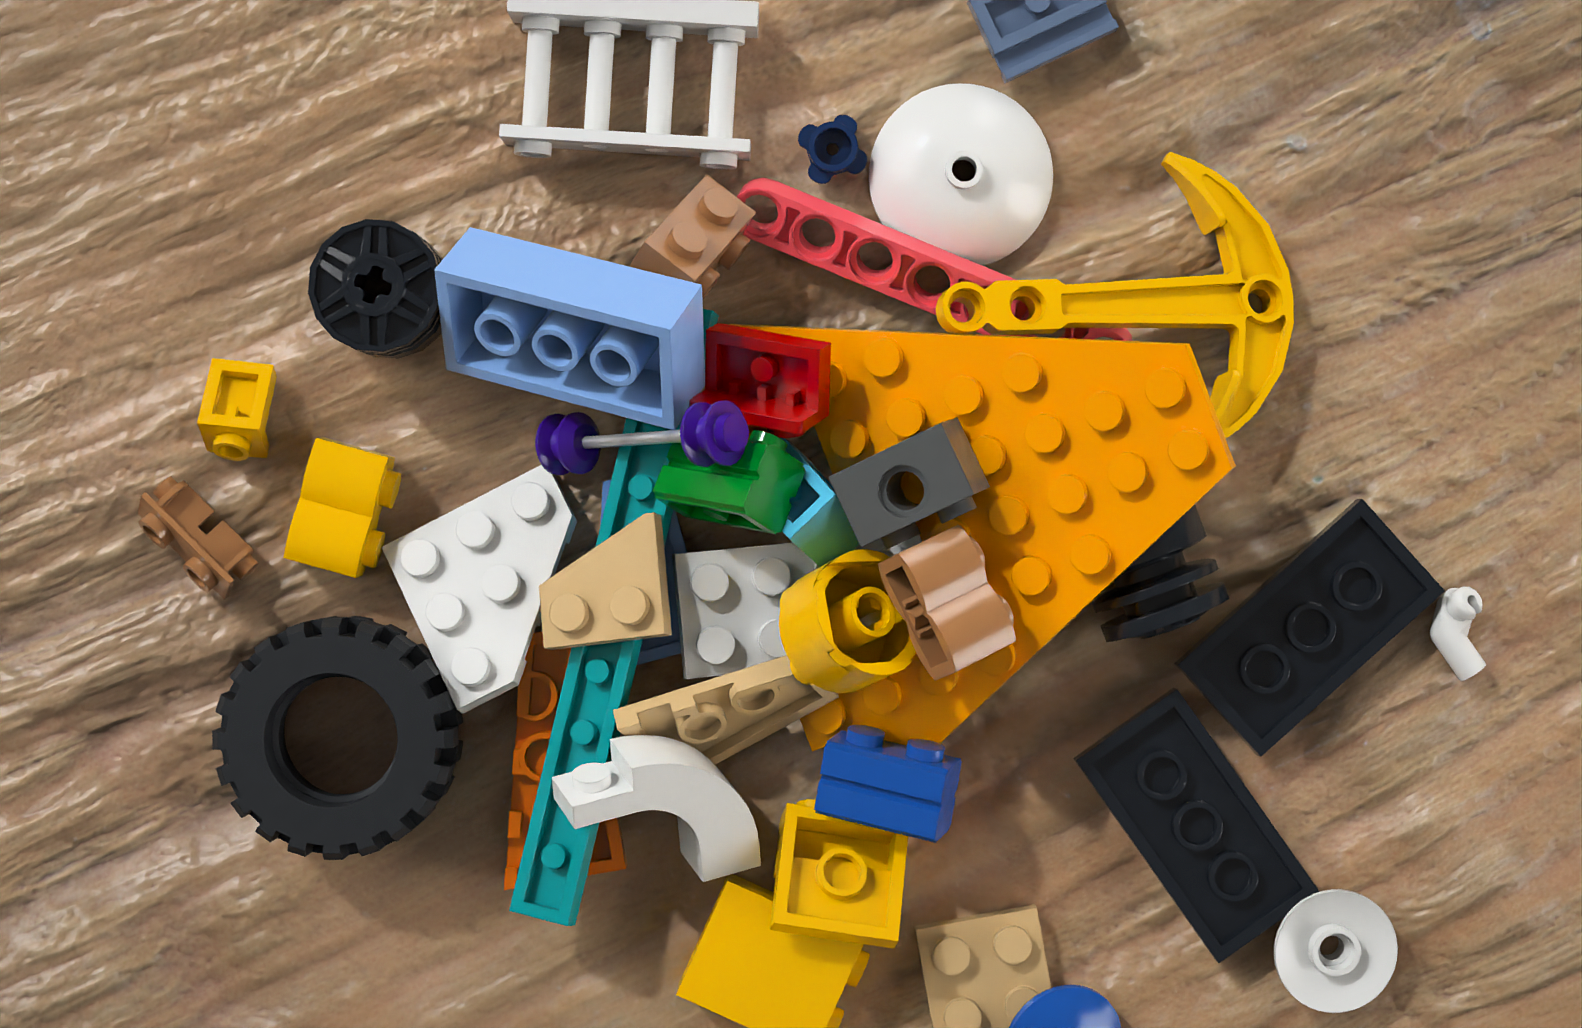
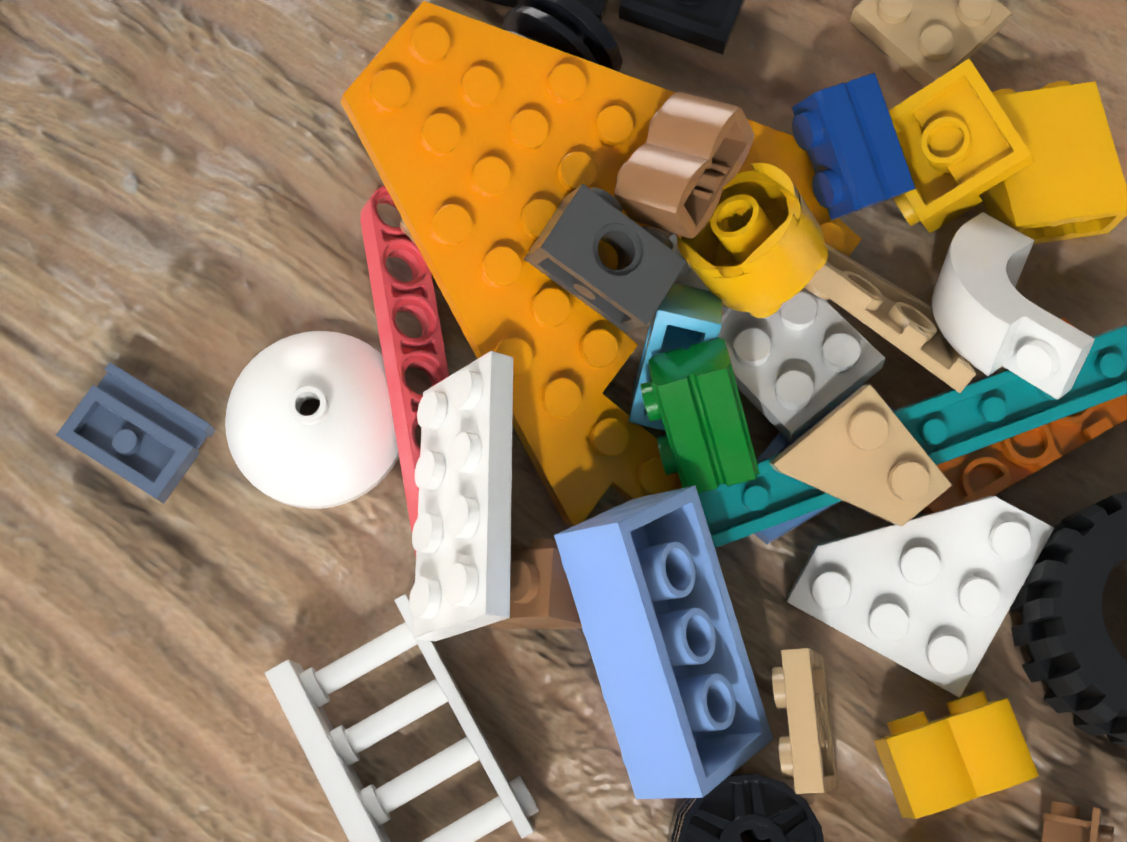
camera: 120 degrees left, 15 degrees down
(453, 412) = (809, 749): none -> tan plate
(706, 433) = (682, 447): dark purple axle -> none
(769, 376) = (599, 442): red bracket -> none
(790, 241) = (464, 501): none -> white plate
(841, 133) = (341, 534): dark blue plate -> none
(1219, 301) = (281, 135): yellow piece -> none

